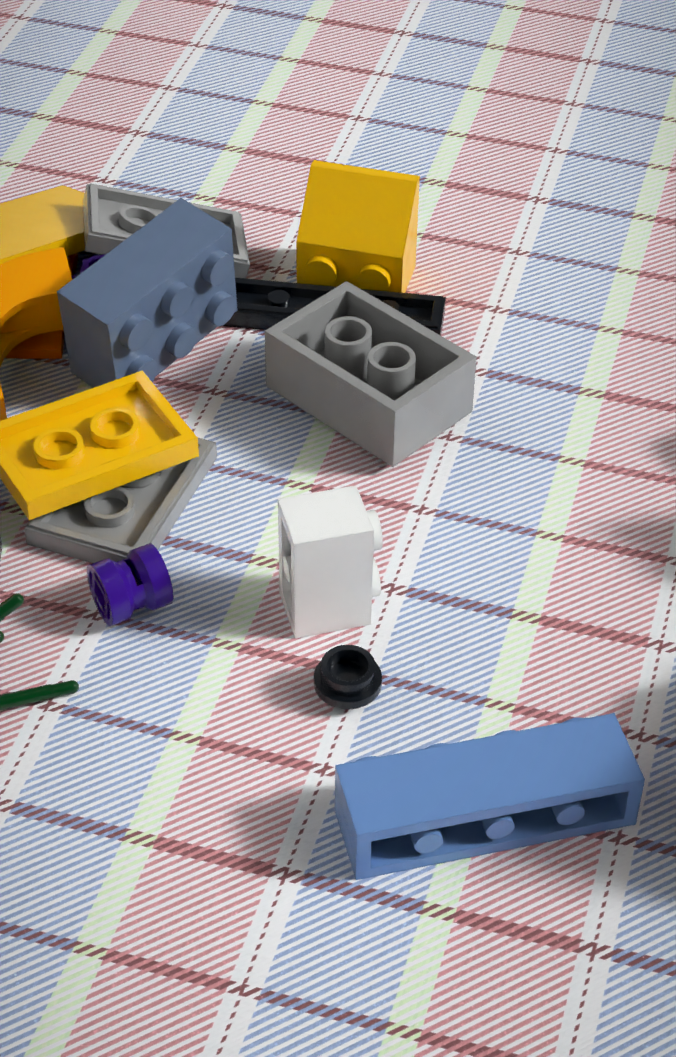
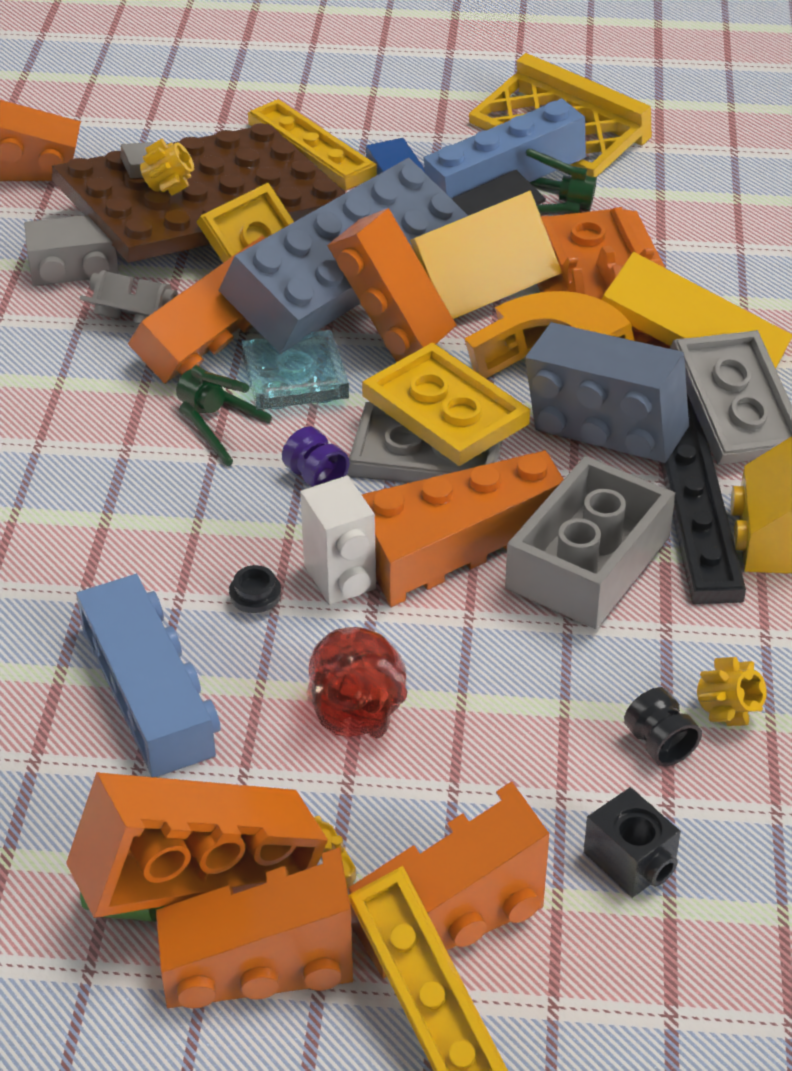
camera: 80 degrees right, 0 degrees up
(291, 451) = (454, 520): none -> orange wedge
(548, 583) = (352, 665): none -> clear red hair
(599, 326) = (731, 691): none -> yellow gear
(634, 382) = (658, 721): none -> black wheel

